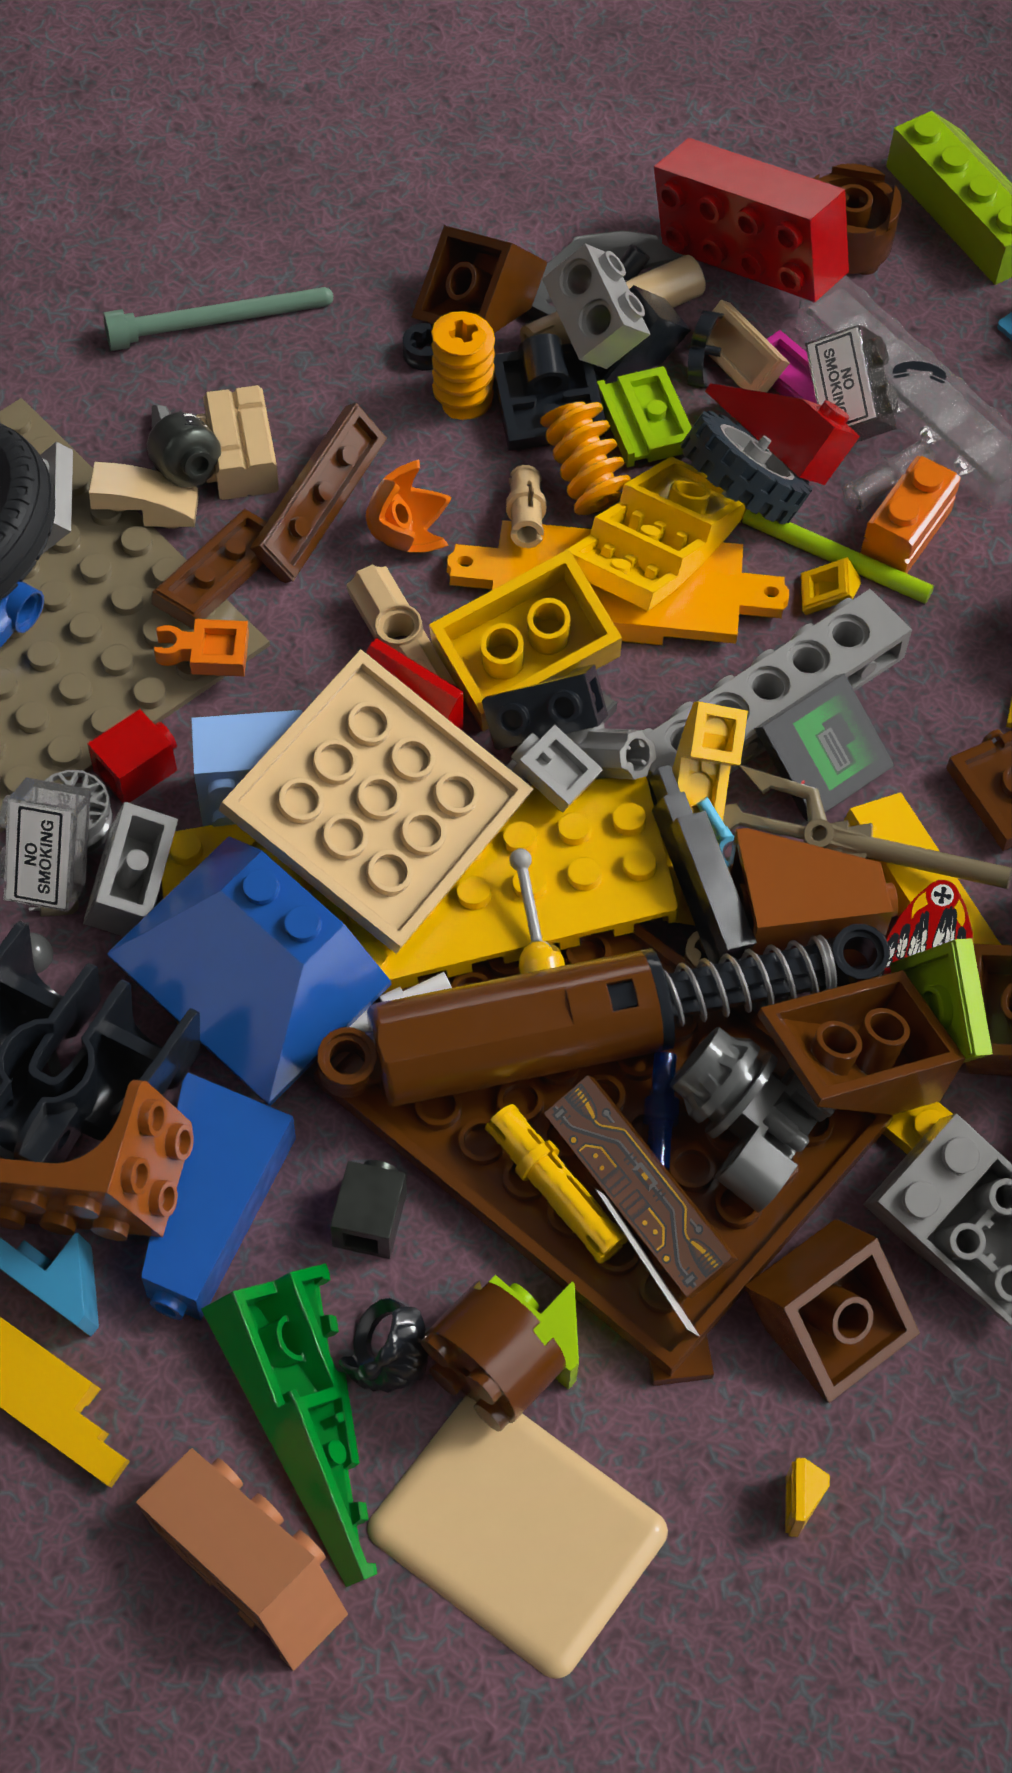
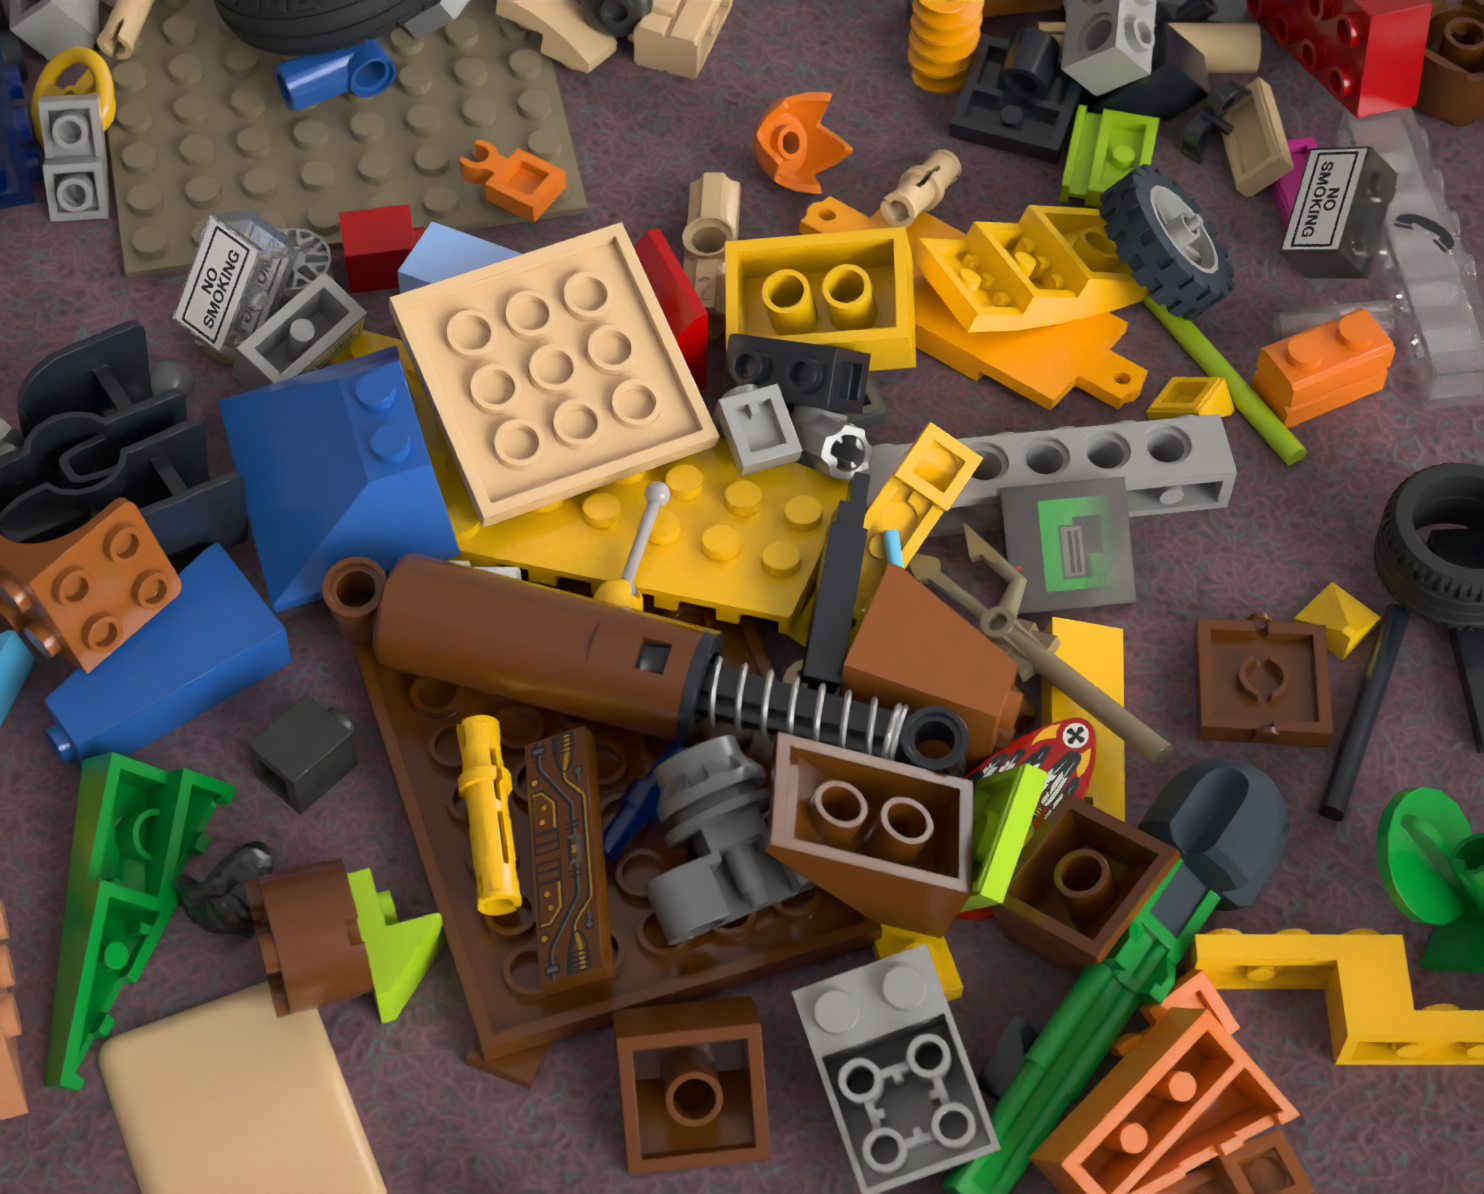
camera: 30 degrees right, 5 degrees down
(212, 572) = (582, 118): reddish brown tile -> none
(318, 493) = (726, 92): reddish brown tile -> none
(585, 456) = (1010, 161): light orange piece -> none
(648, 1263) = (522, 937): white sticker -> none
(802, 434) = (1248, 235): red slope -> none

